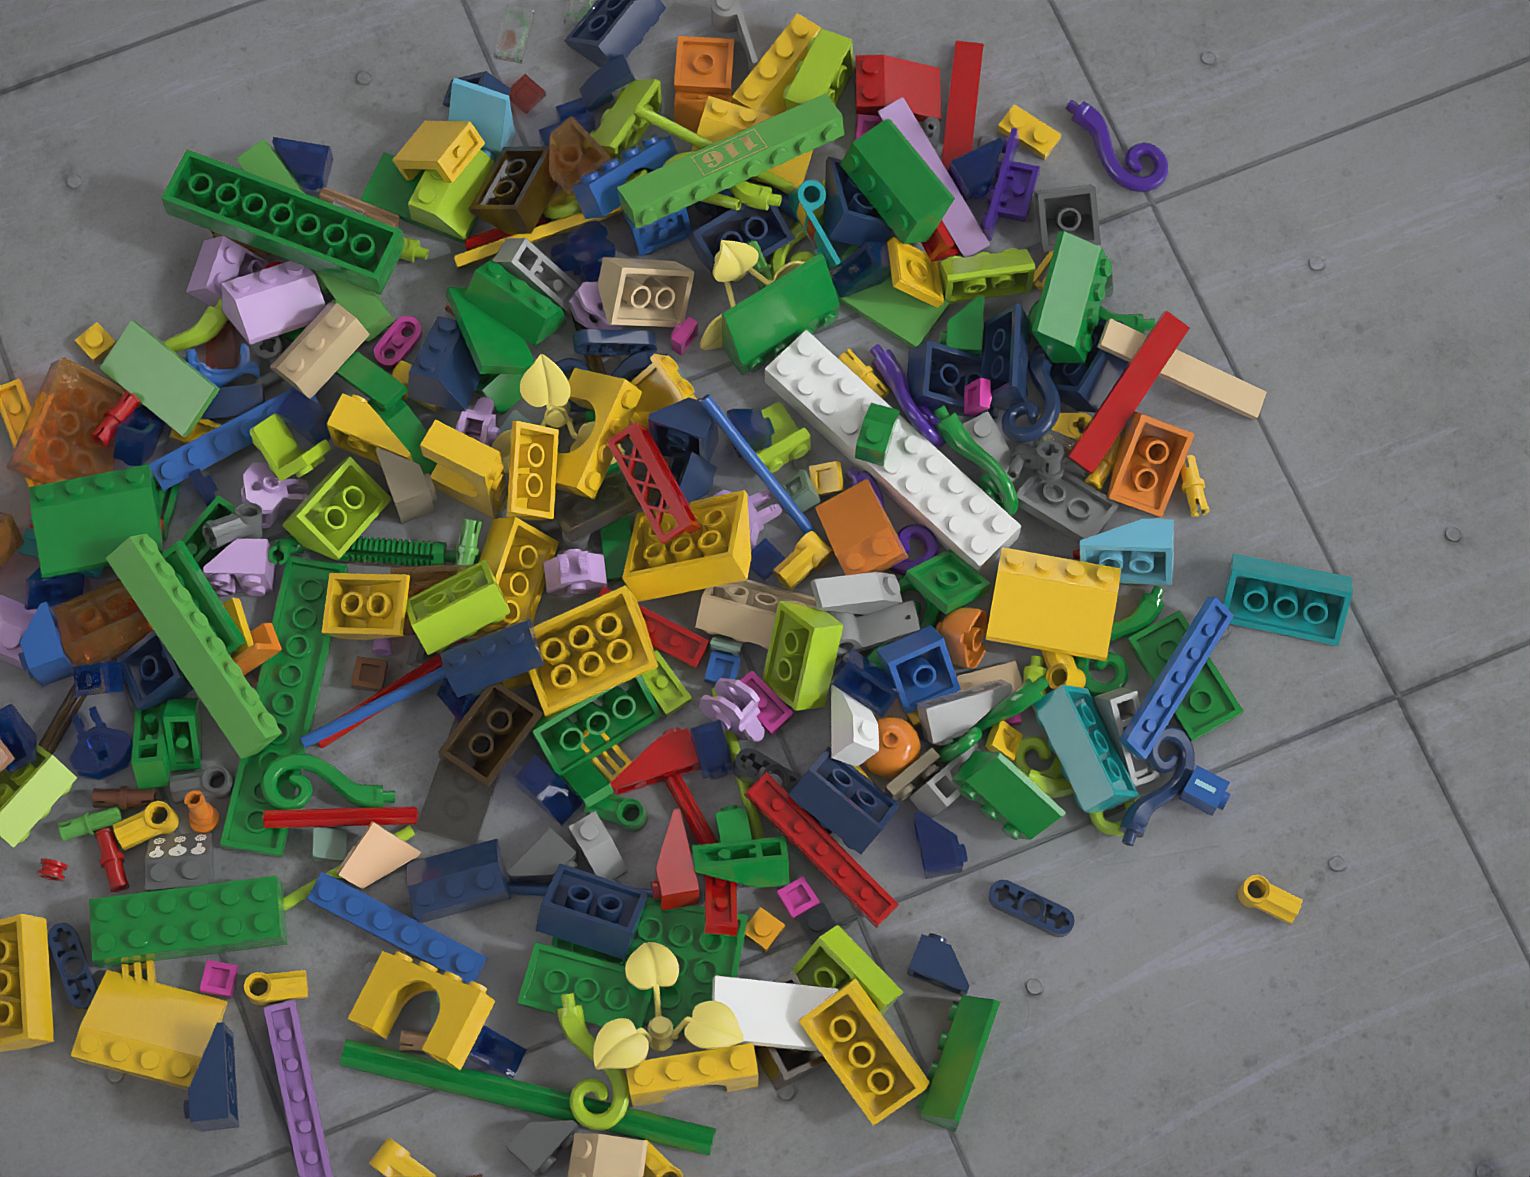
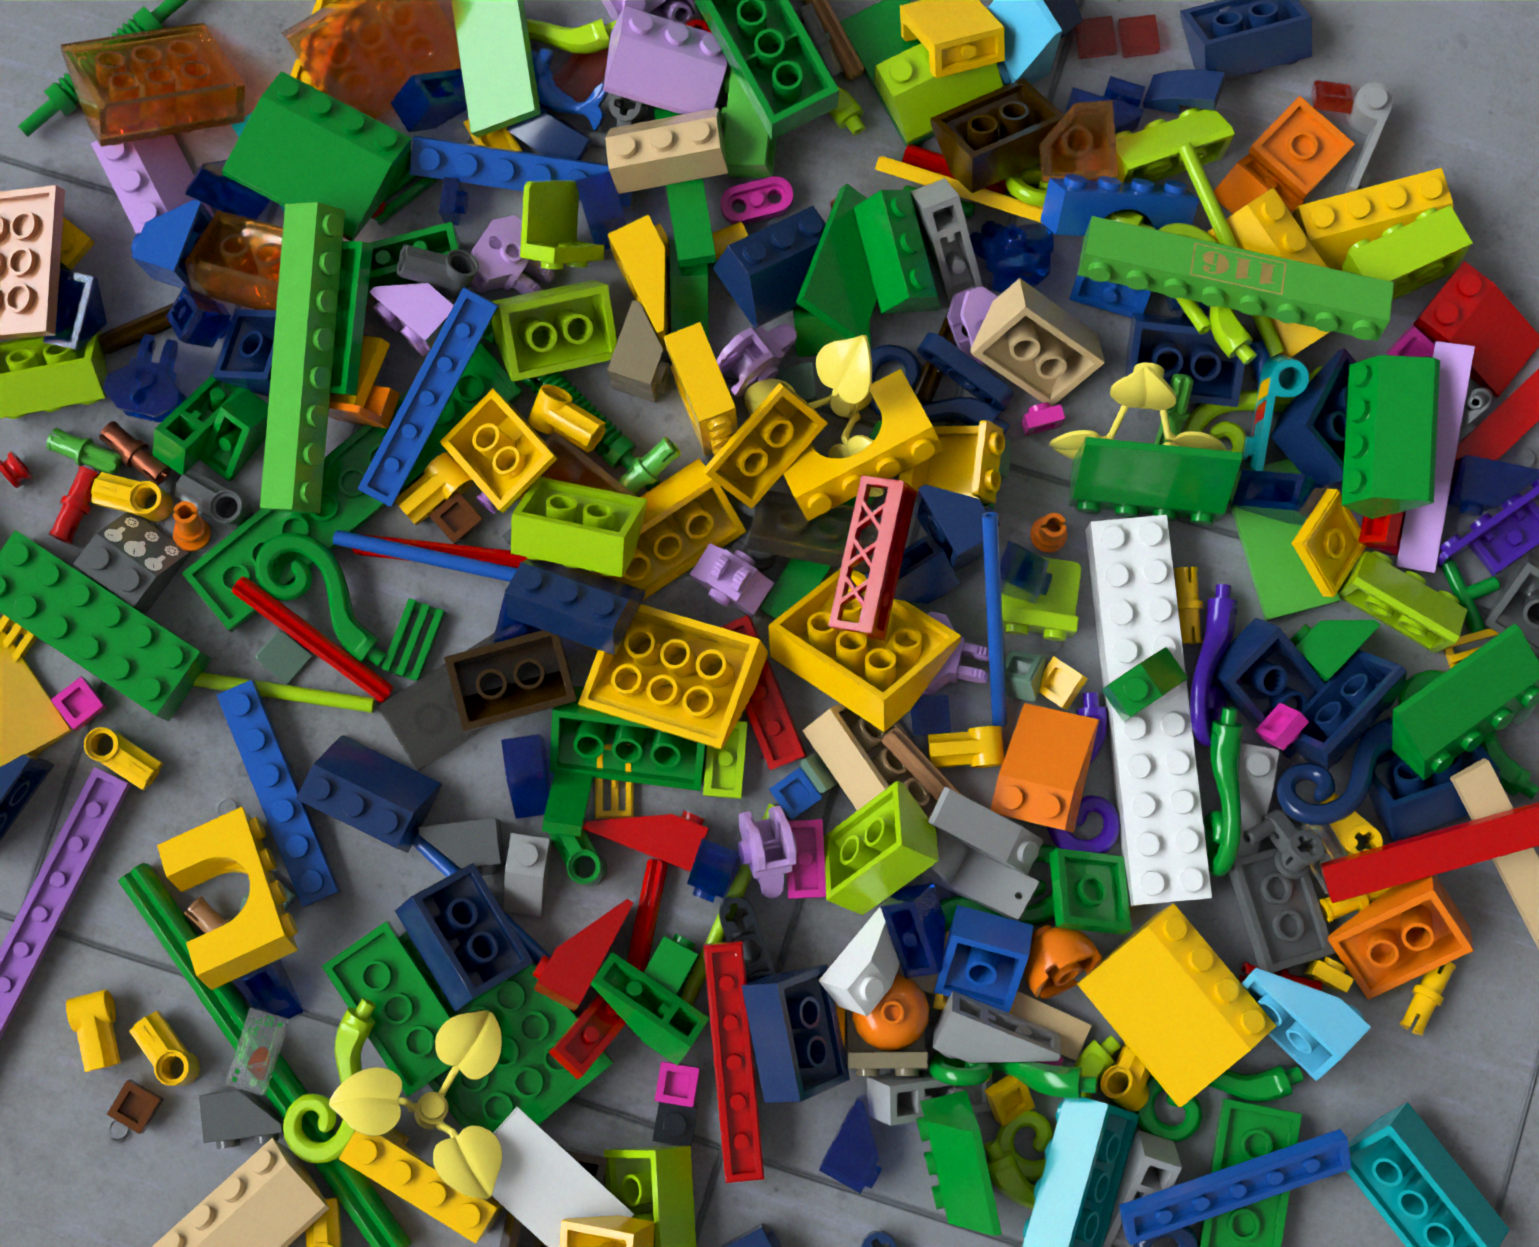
camera: 45 degrees right, 10 degrees up
(113, 418) = (420, 63): red pin -> none
(294, 607) = (428, 396): none -> blue plate
(340, 663) = (439, 483): none -> yellow piece
(375, 856) = (313, 705): light nougat slope -> none
(380, 557) = (556, 412): none -> yellow piece
(396, 746) = (399, 636): none -> green tile
(456, 1142) = (162, 1048): none -> yellow piece
(520, 1088) = (257, 1051): none -> clear tile
(551, 73) = (1138, 36): none -> clear red tile
(697, 22) = (1332, 96): none -> clear red tile
(744, 395) = (1049, 533): none -> orange pin
(763, 929) = (620, 1085): light orange plate -> none
(781, 590) = (917, 762): none -> medium nougat axle
(1020, 242) = (1469, 594): none -> green piece
(1126, 515) = (1330, 974): none -> yellow plate

